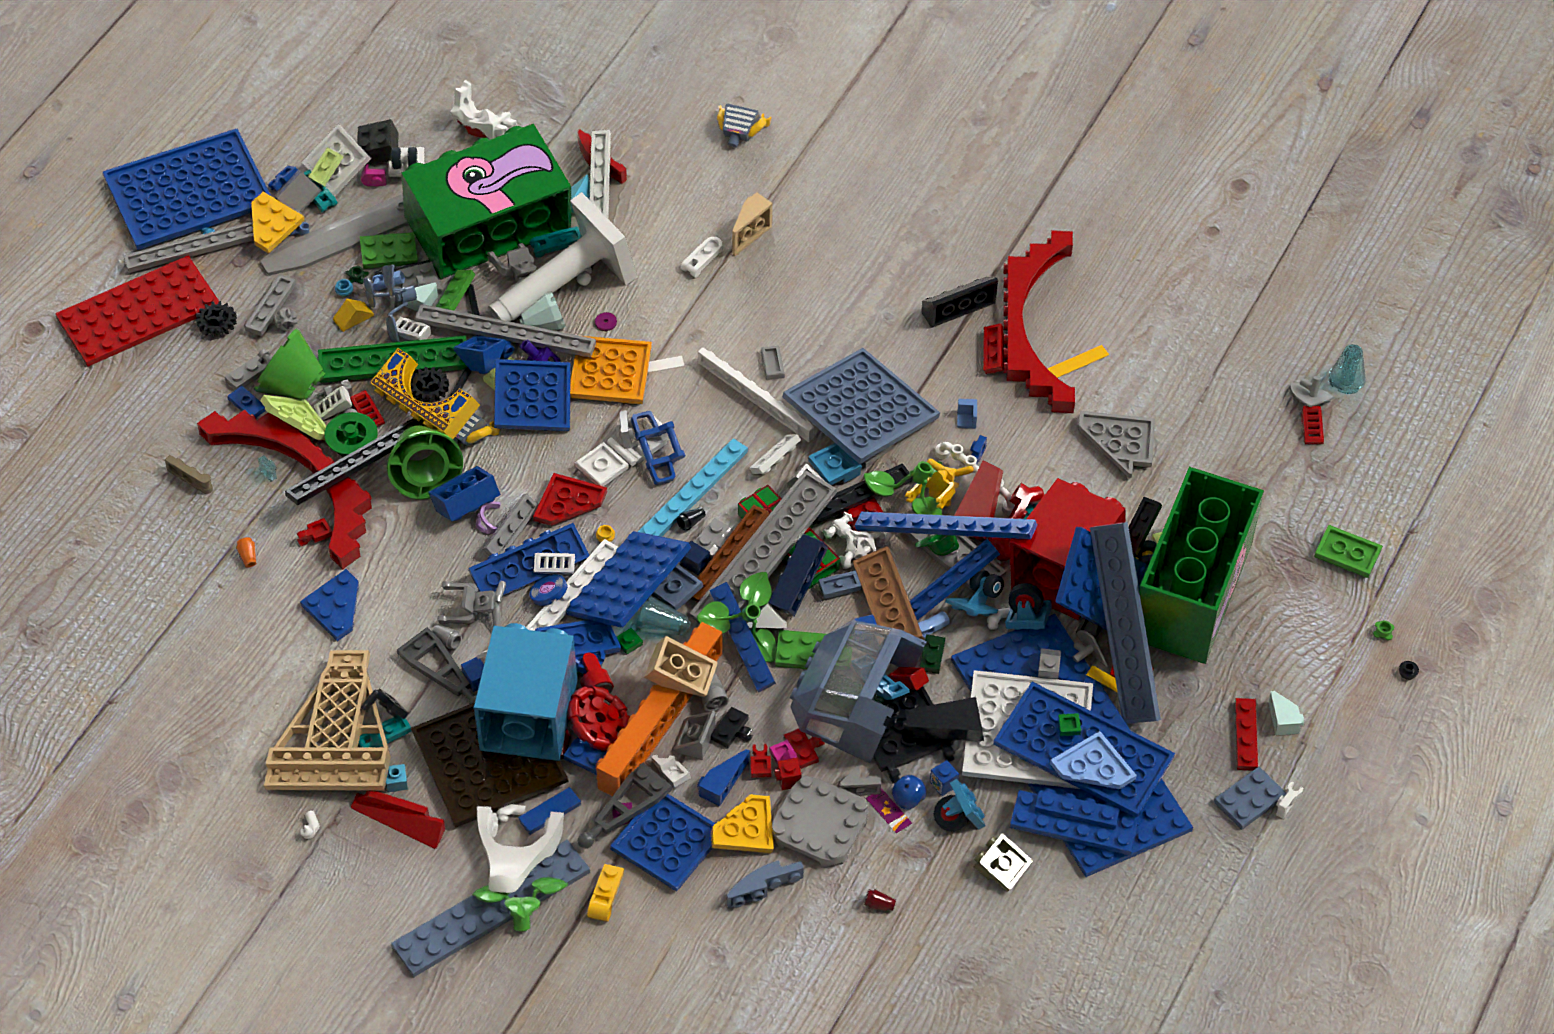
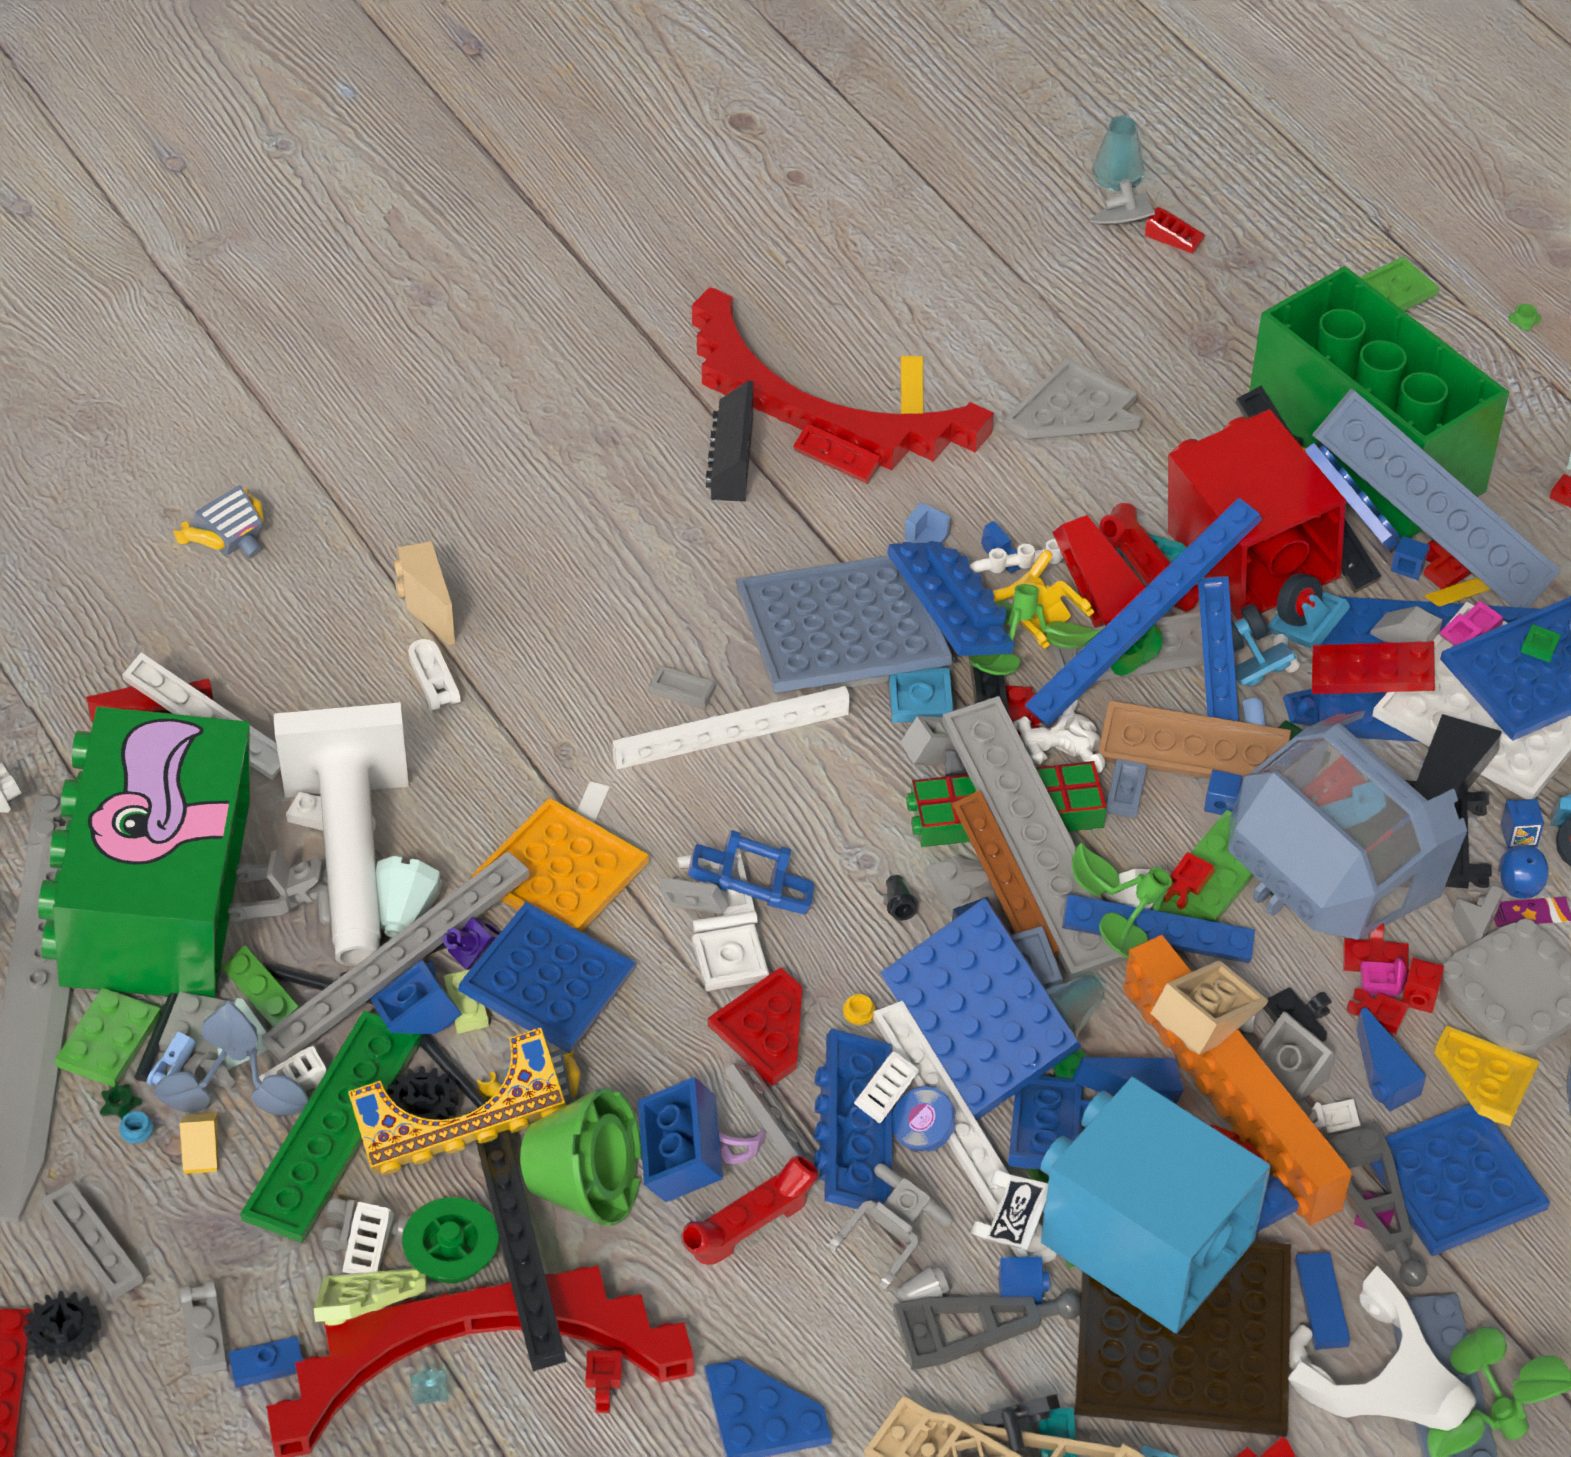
camera: 60 degrees left, 5 degrees down
(285, 319) = (142, 1229): light grey gear -> none
(291, 370) = (267, 1258): bright green cone -> none
(362, 400) = (403, 1193): red slope -> none
(424, 538) = (782, 1194): none -> red plate
(555, 241) = (265, 823): teal plate -> none
(605, 892) = (1532, 1306): yellow plate -> none
(606, 326) = (459, 846): magenta wheel -> none
(631, 668) = (1113, 1073): none -> blue slope
(695, 488) = (848, 874): medium azure plate -> none
(775, 454) = (852, 754): white plate -> none
(785, 635) = (1189, 876): none -> red plate
(798, 574) = (1099, 812): dark blue brick -> none
(911, 443) = (953, 597): none -> blue plate
(960, 641) = (1302, 707): none -> blue piece
(1005, 658) = (1373, 667): none -> red plate
(1076, 693) = (1472, 624): none -> dark pink slope
(1086, 647) = (1398, 580): light grey shield -> none

